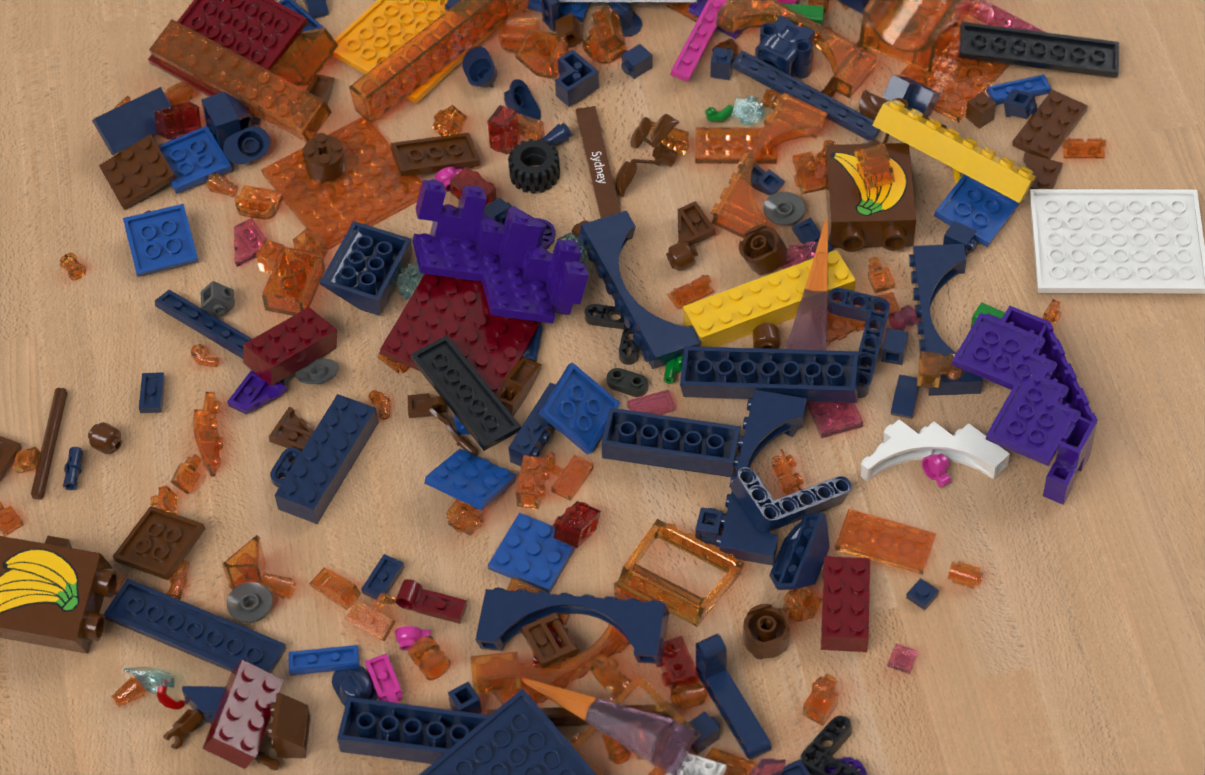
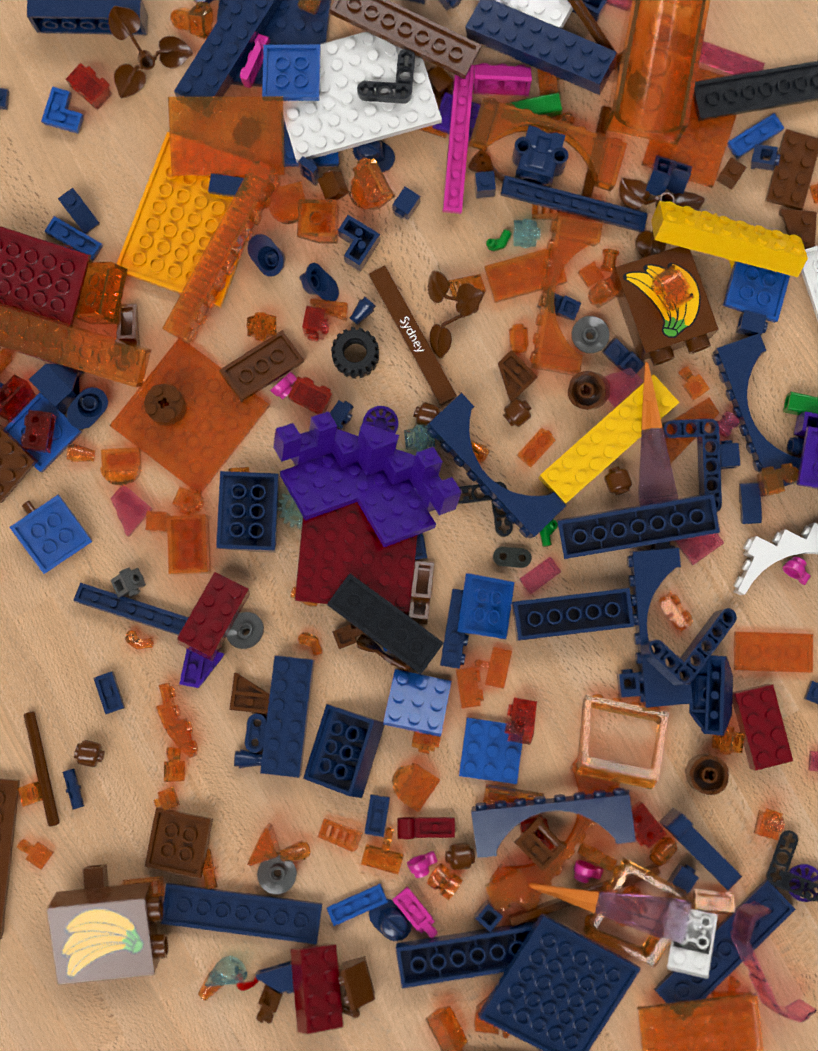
camera: 20 degrees left, 30 degrees up
(190, 151) = (38, 431): none -> clear red brick
(263, 487) = (246, 759): none -> dark blue cone
(374, 508) = (344, 751): none -> dark blue slope
(435, 560) = (414, 785): none -> clear orange slope
(457, 640) = (460, 856): none -> reddish brown head
(592, 689) = (585, 871): none -> dark pink piece
(629, 279) = (480, 451): none -> clear orange cone
(708, 194) = (518, 338): none -> clear orange brick

